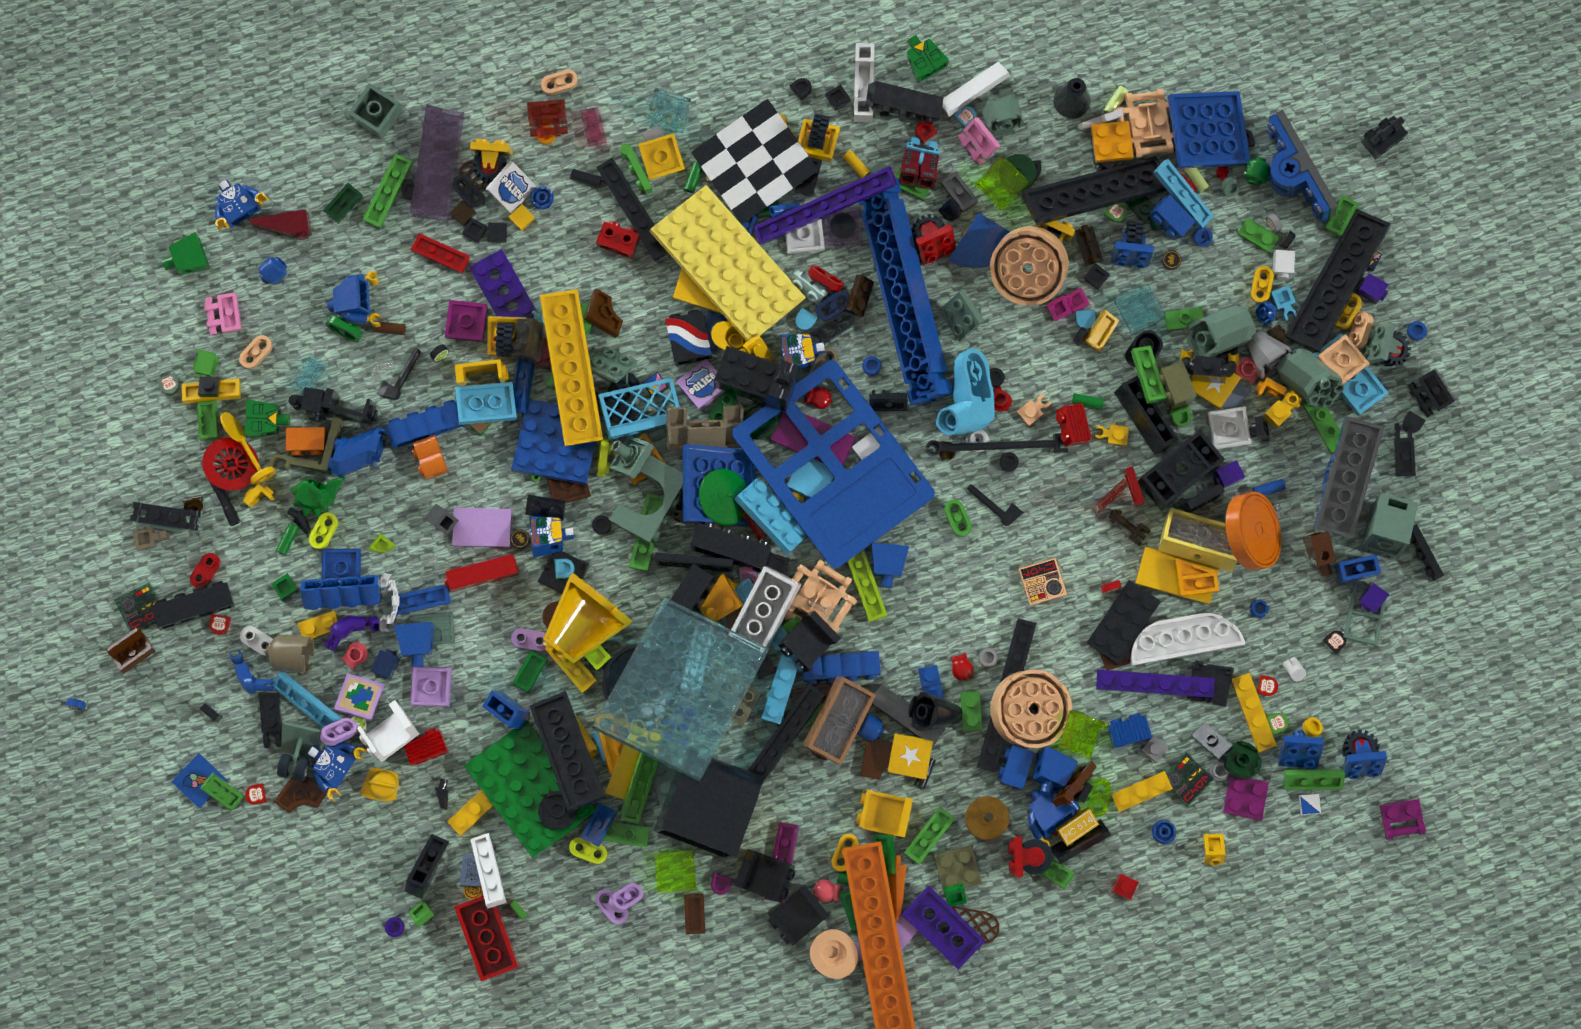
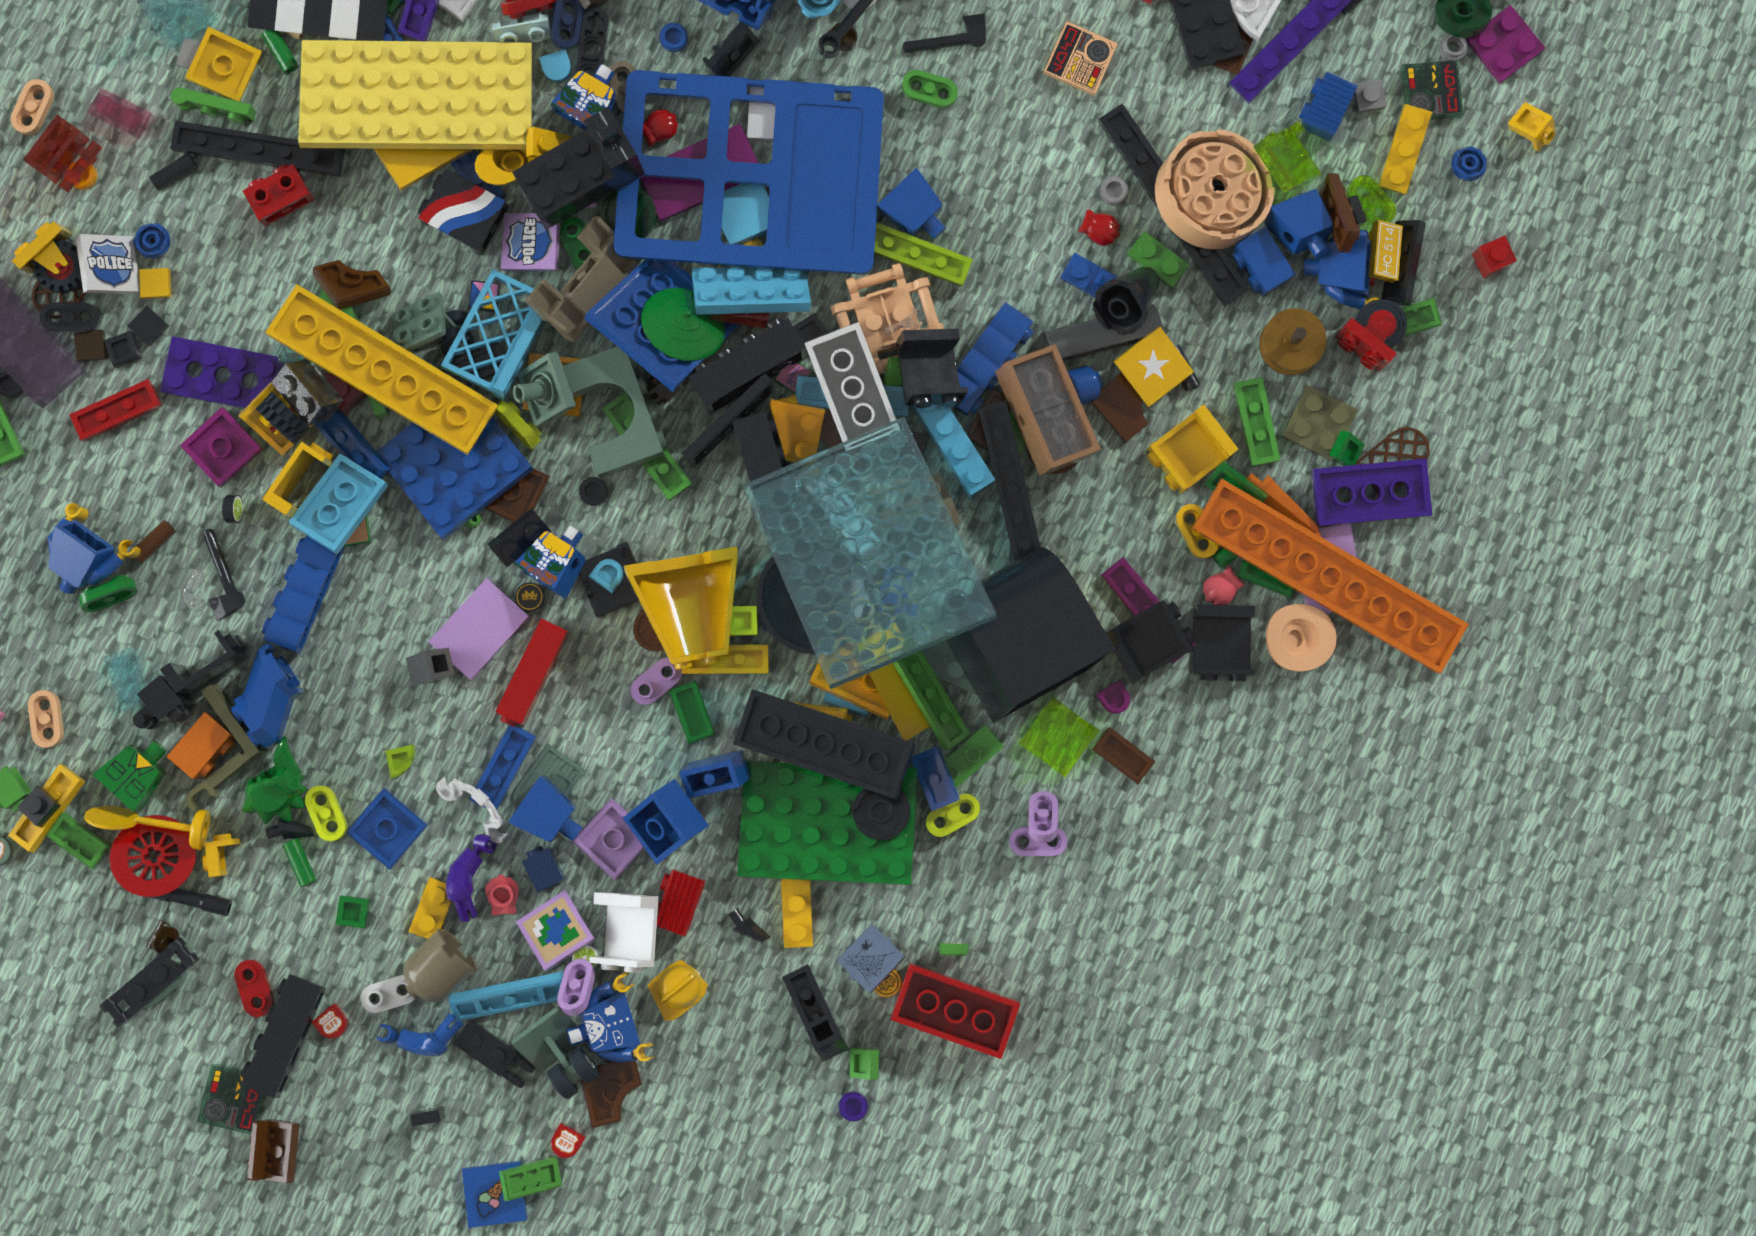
camera: 55 degrees left, 5 degrees up
(147, 538) = (157, 1024): dark tan plate -> none
(340, 592) = (413, 855): blue brick -> none
(430, 457) = (346, 620): orange brick -> none
(461, 705) = (665, 821): none -> blue brick
(488, 870) = (882, 947): white tile -> none
(1212, 741) = (1416, 25): plate -> none

